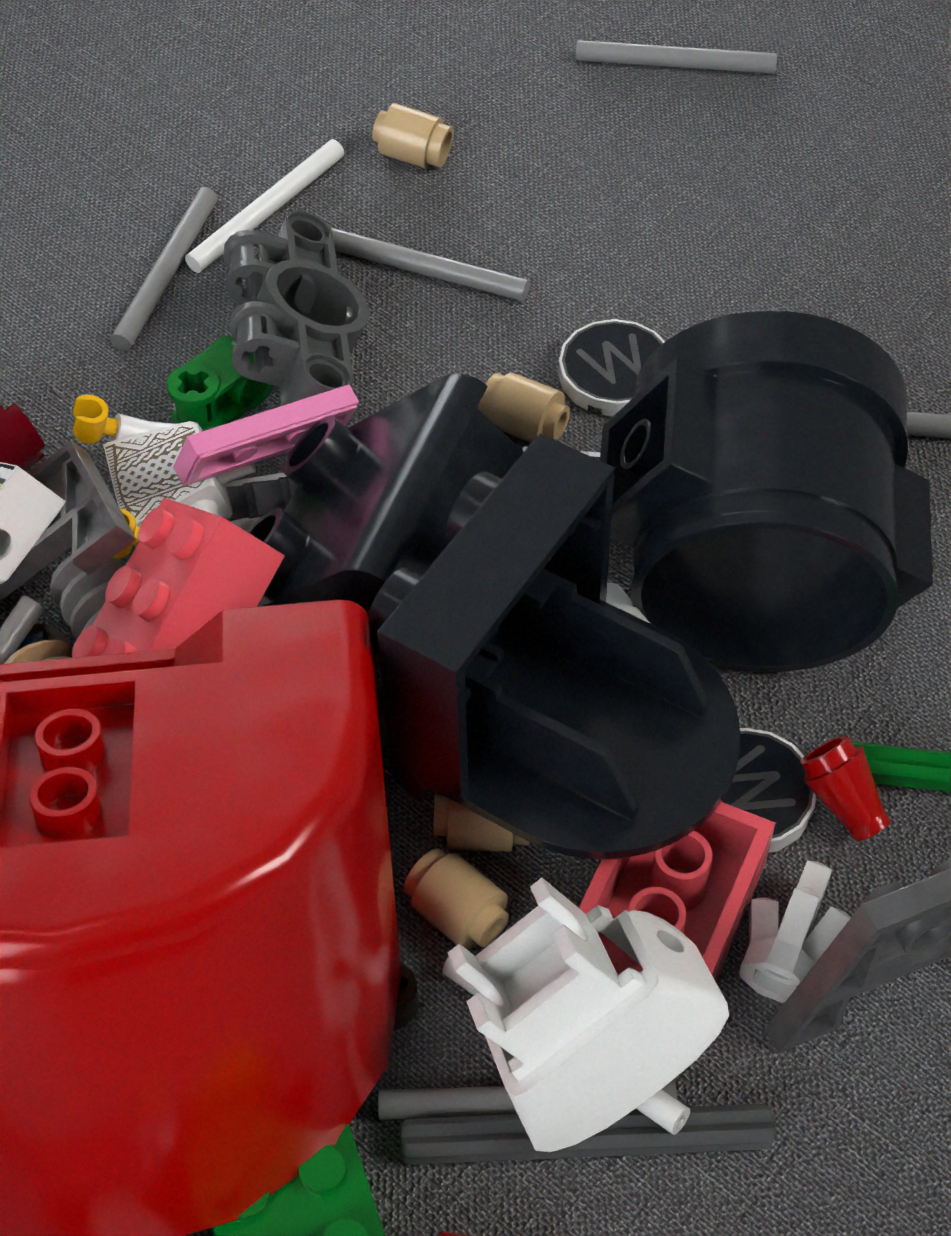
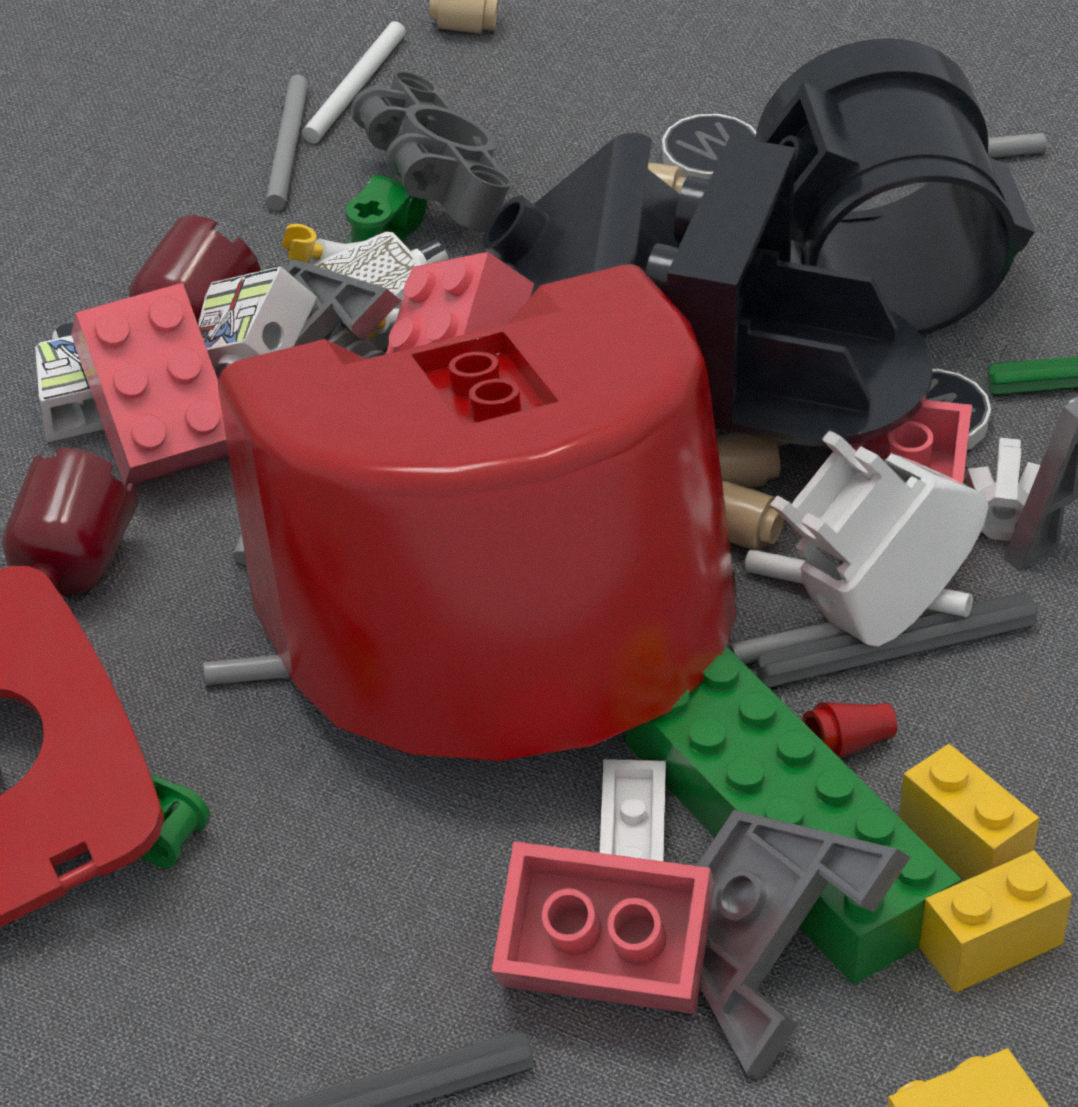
camera: 15 degrees left, 10 degrees down
(259, 435) = (454, 226): bright pink tile -> none
(430, 265) = (528, 103): light grey bar -> none
(846, 786) = (1011, 387): red cone -> none

